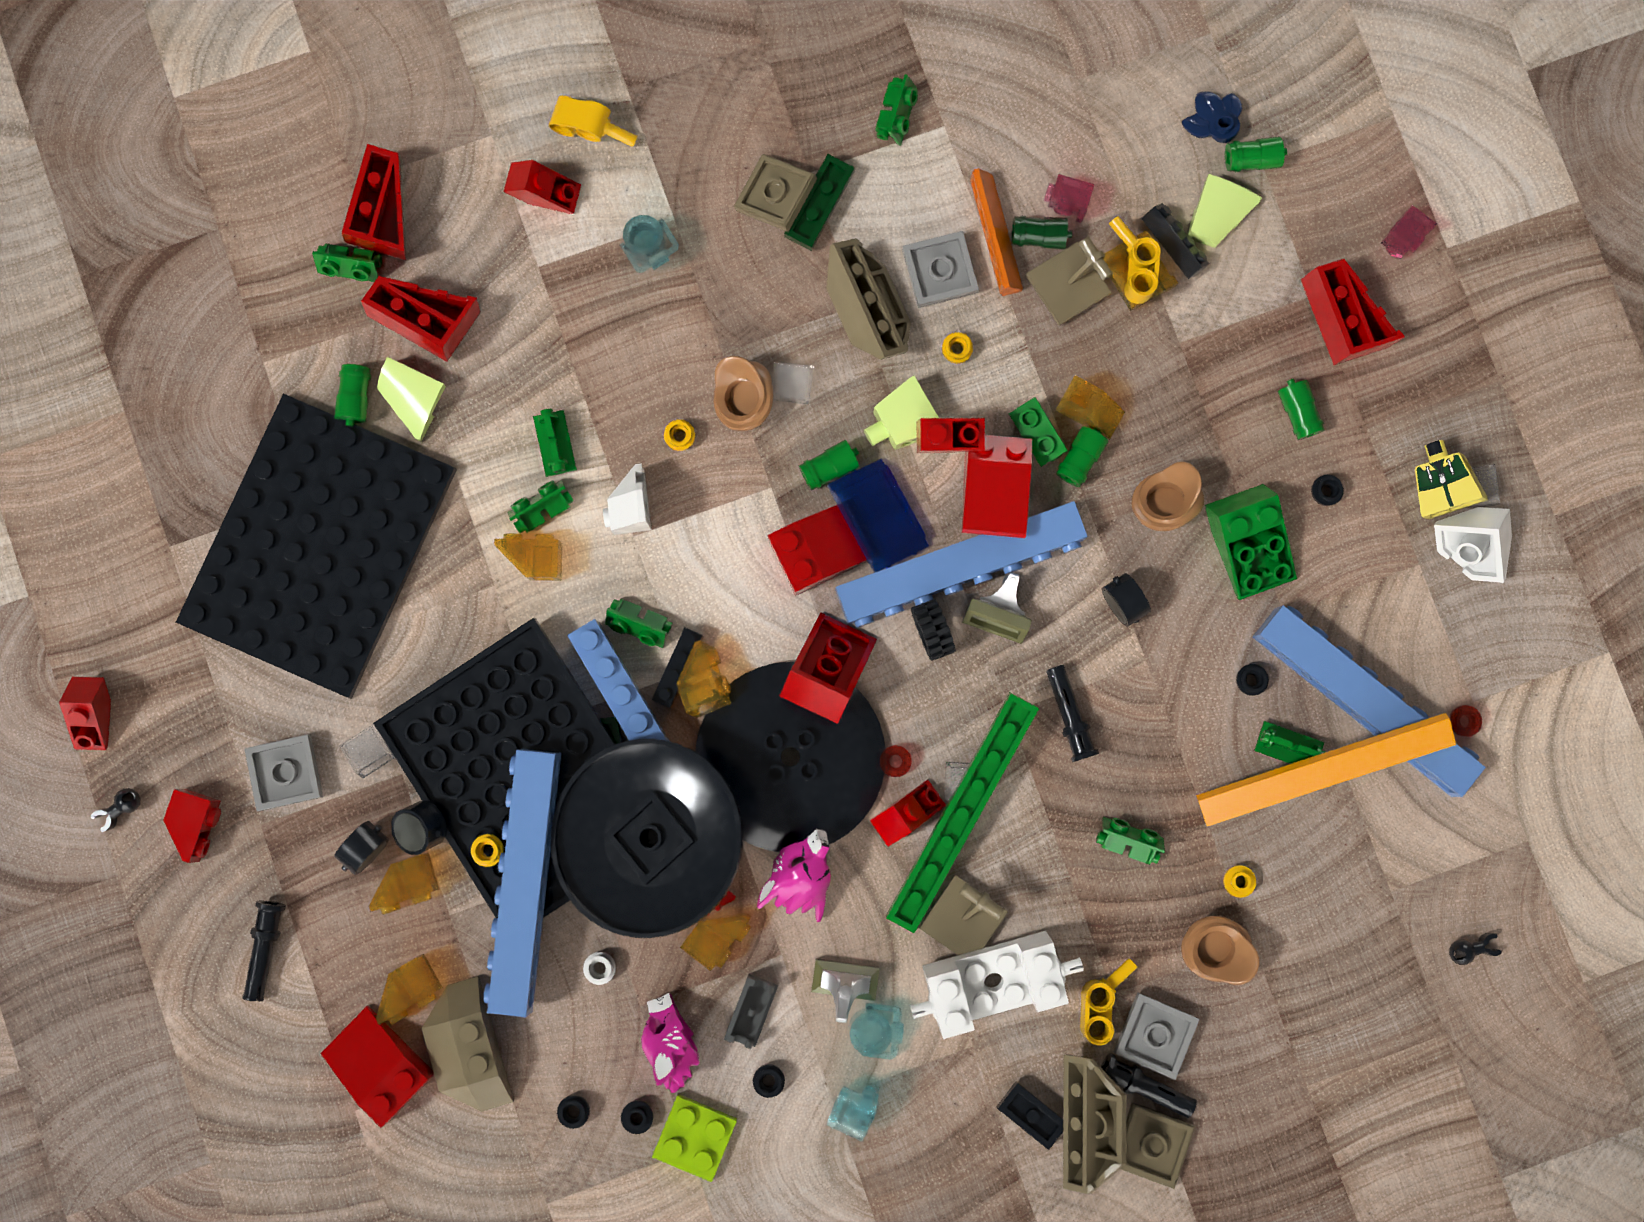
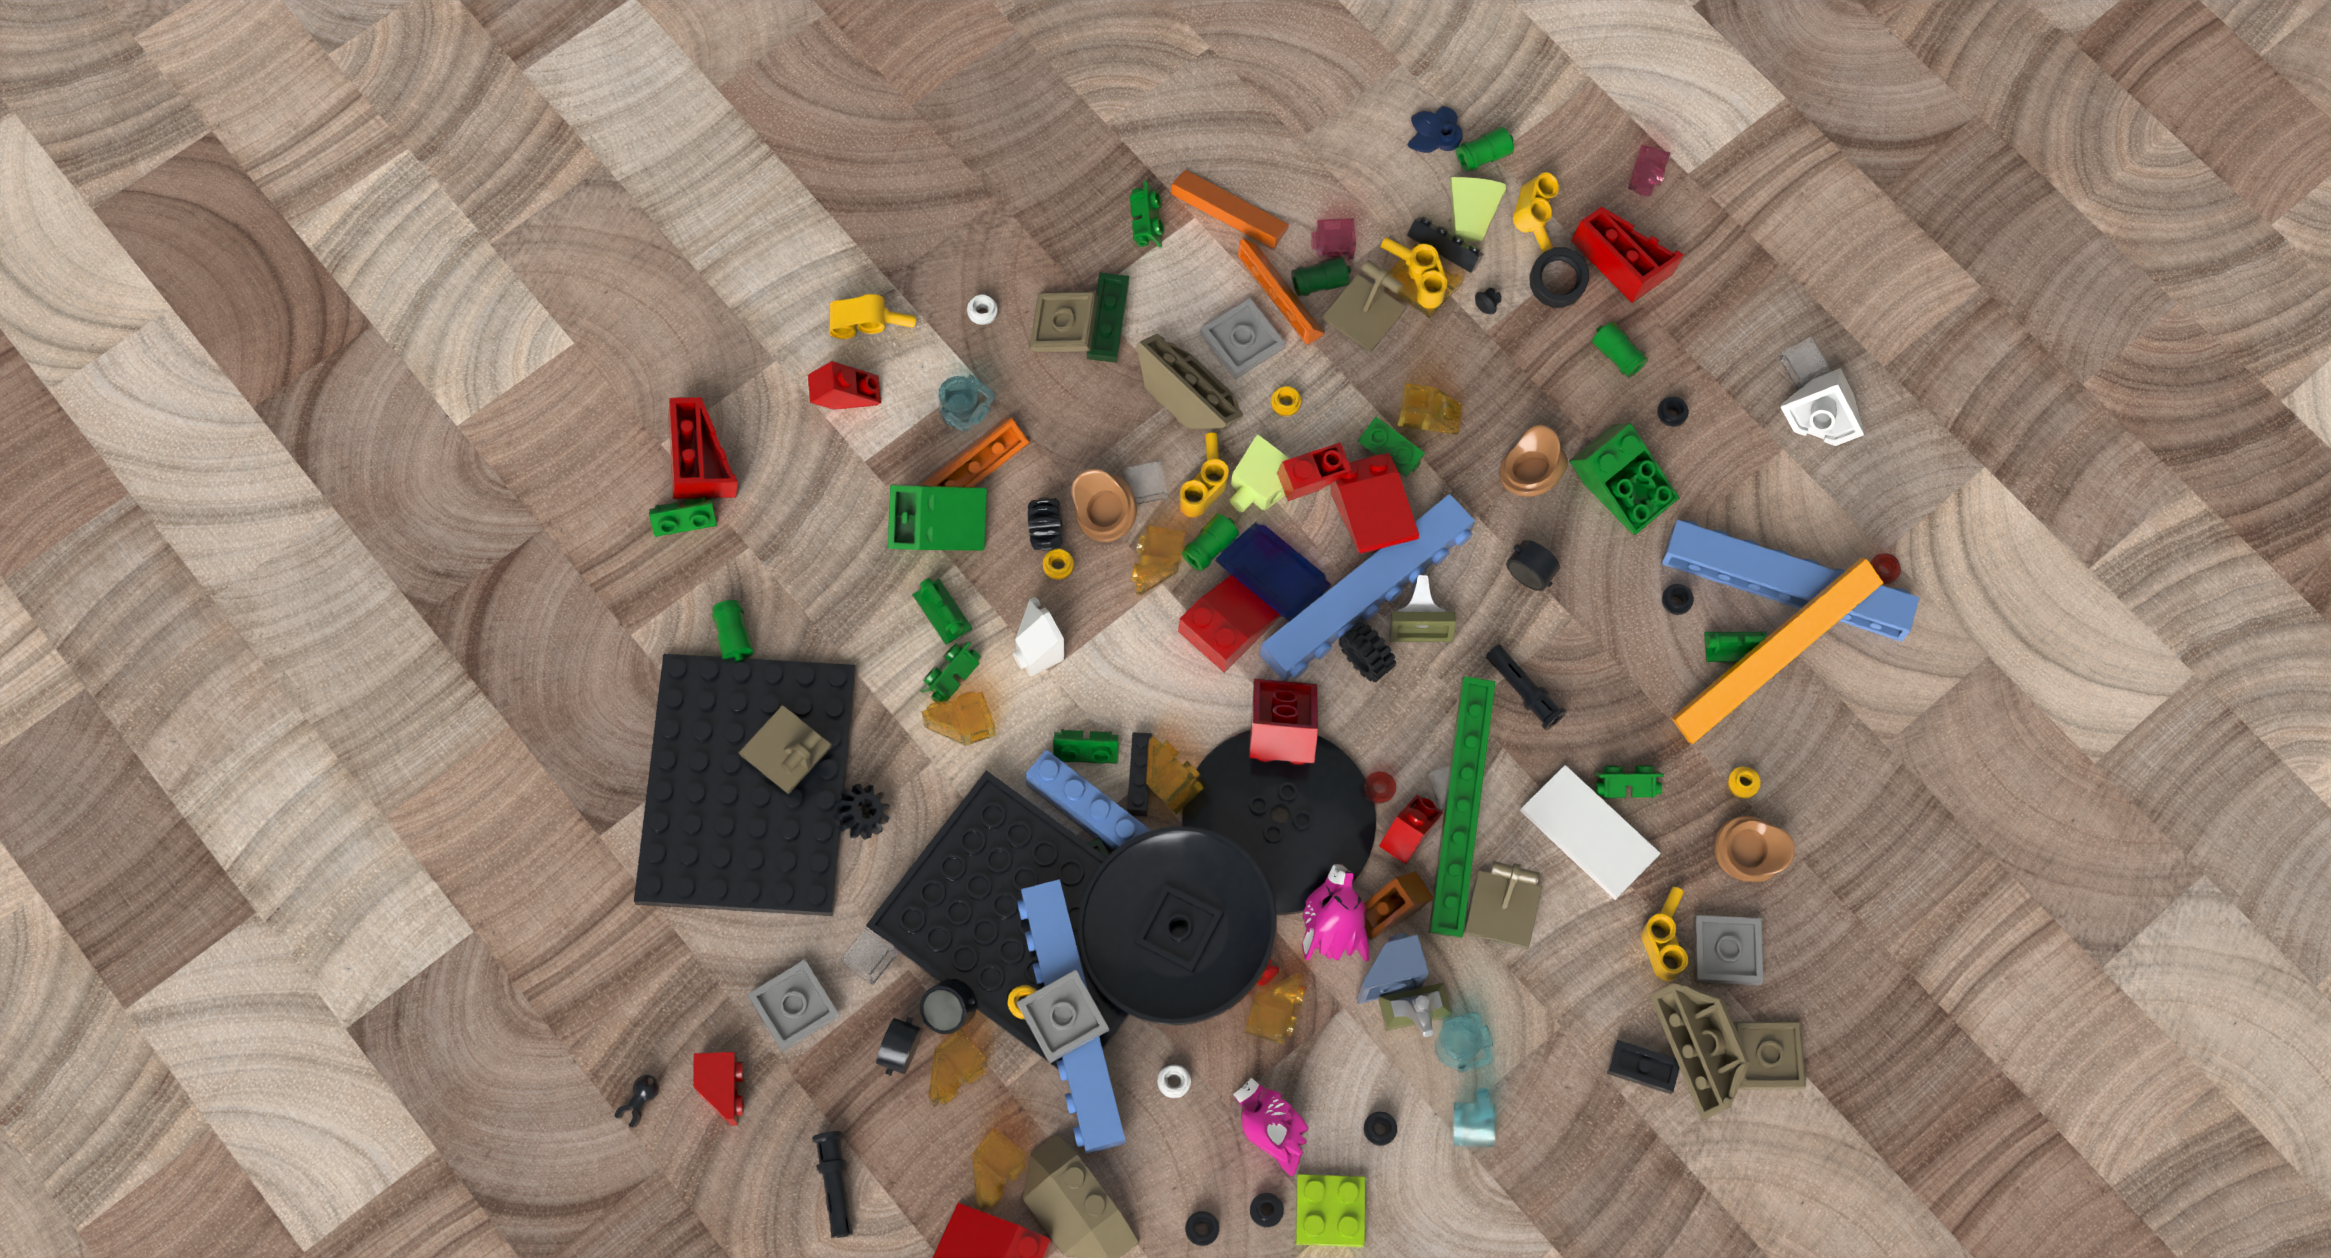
camera: 20 degrees left, 15 degrees down
(87, 712) = (577, 1017): red slope -> none
(357, 530) = (785, 749): none -> dark tan plate
(396, 618) = (852, 815): none -> black gear
(410, 395) = (787, 613): yellowish green slope -> none
(421, 315) = (773, 536): red wedge -> none
(508, 887) = (1062, 1016): none -> light grey plate
(577, 350) = (936, 517): none -> green slope
(634, 307) = (981, 456): none -> orange slope
(679, 393) = (1045, 524): none -> black gear
(699, 144) = (979, 302): none -> white plate
(751, 1011) = (1336, 1067): dark grey hinge -> none
(775, 464) = (1160, 557): none -> clear yellow slope
(835, 945) = (1396, 969): none -> sand blue slope
(841, 403) = (1201, 486): none -> yellow beam
(864, 879) = (1395, 903): none -> dark orange slope
(980, 129) = (1229, 209): none -> orange slope
(1028, 976) = (1585, 932): white brick -> none
(1075, 875) = (1590, 832): none -> white tile
(1082, 455) = (1439, 452): green piece -> none
(1134, 1080) = (1749, 1001): black pin -> none
(1194, 313) = (1488, 301): none -> black piece
(1280, 227) = (1534, 208): none -> yellow beam
(1295, 323) = (1566, 255): none -> black tyre
(1446, 482) = (1775, 367): light yellow torso -> none
(1466, 951) = (1974, 772): black arm -> none

